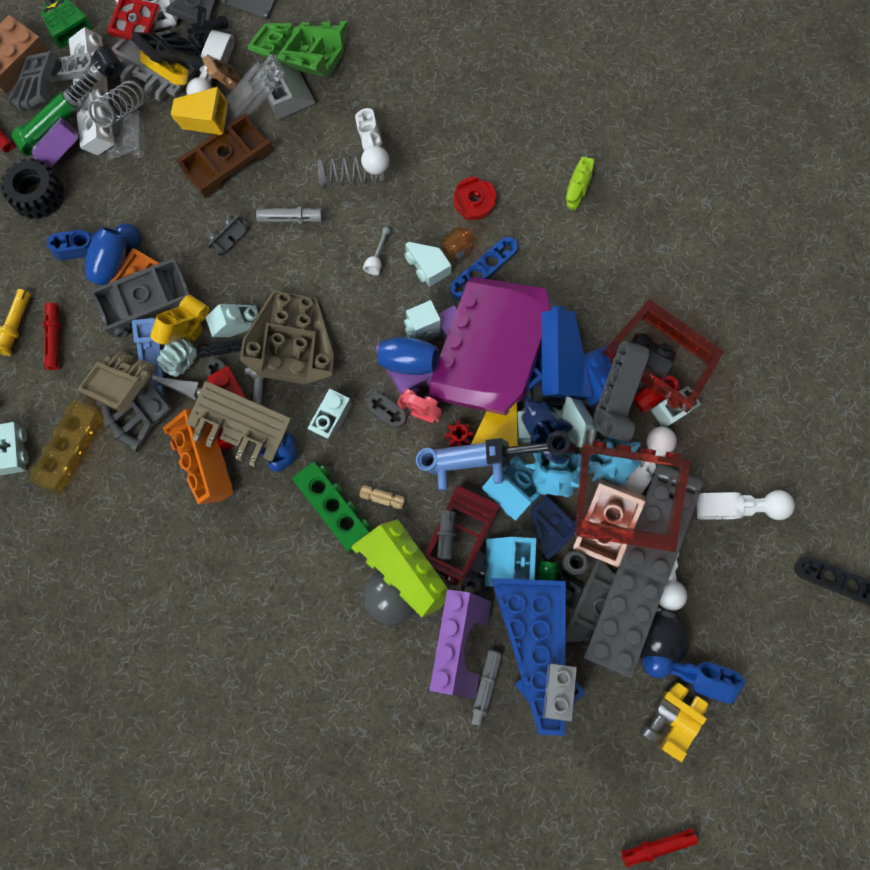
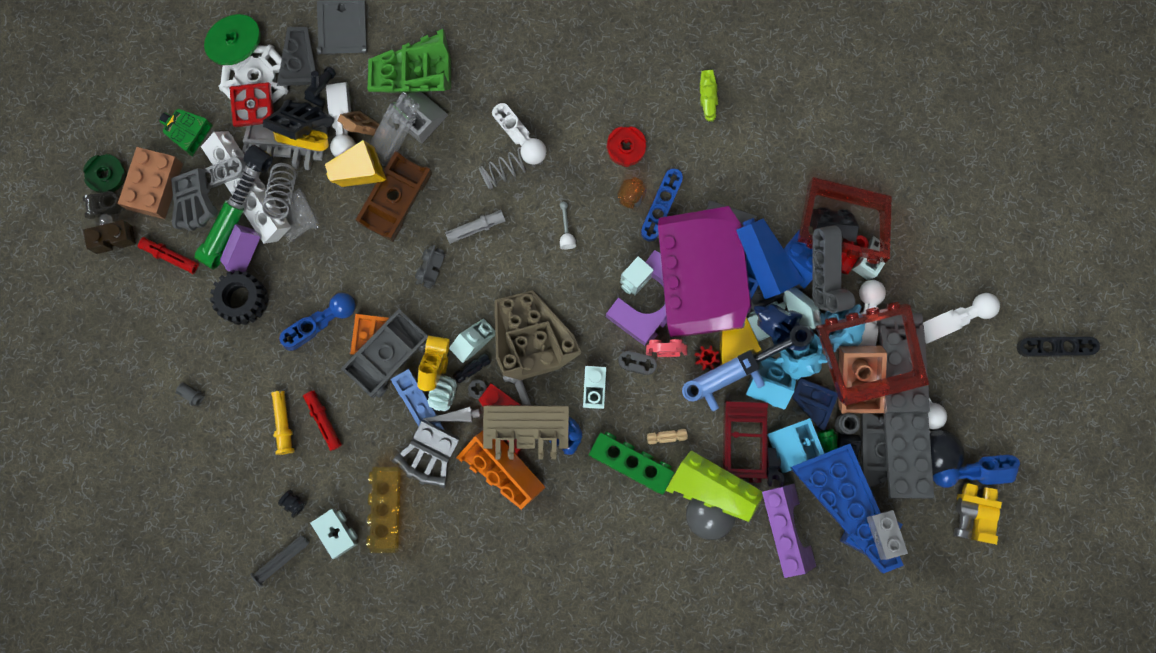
camera: 25 degrees left, 5 degrees up
(105, 256) = (337, 332): blue piece -> none
(117, 381) = (404, 438): dark tan hinge -> none
(408, 356) = (640, 312): blue piece -> none
(429, 261) = (614, 219): light aqua slope -> none
(446, 534) = (737, 446): dark grey axle -> none
(486, 686) = (819, 552): light grey piece -> none
(658, 848) = (1005, 617): red pin -> none

